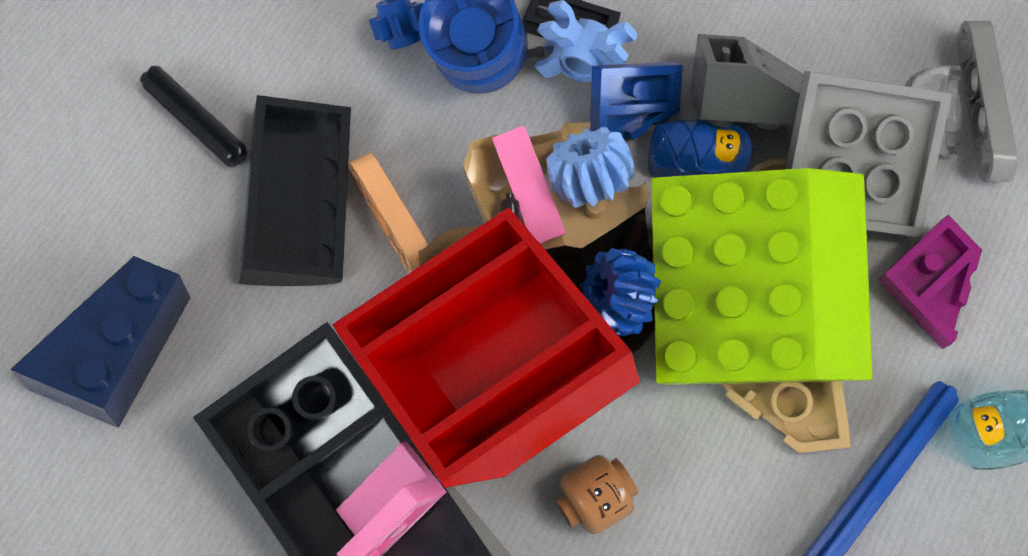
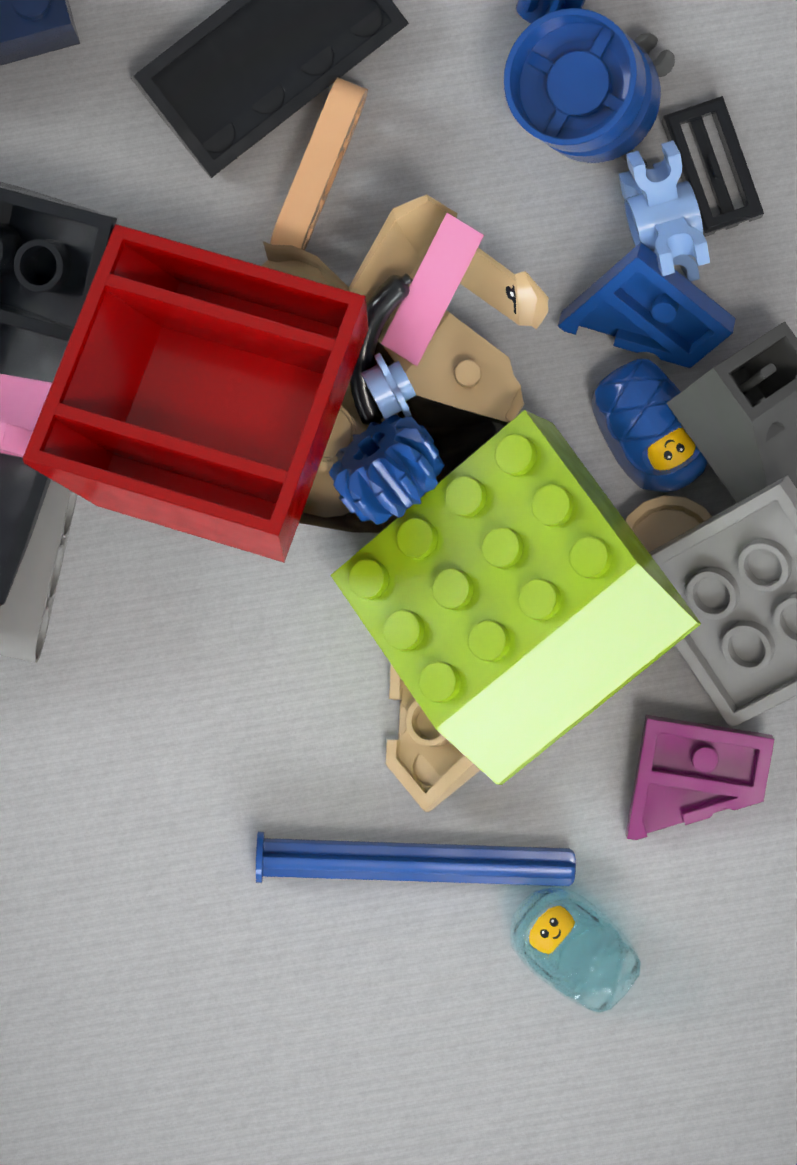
camera: 55 degrees right, 20 degrees up
(570, 252) = (389, 387): none -> light blue plate
(590, 167) = (493, 337): light blue gear -> none
(596, 494) = (181, 600): medium nougat head -> none

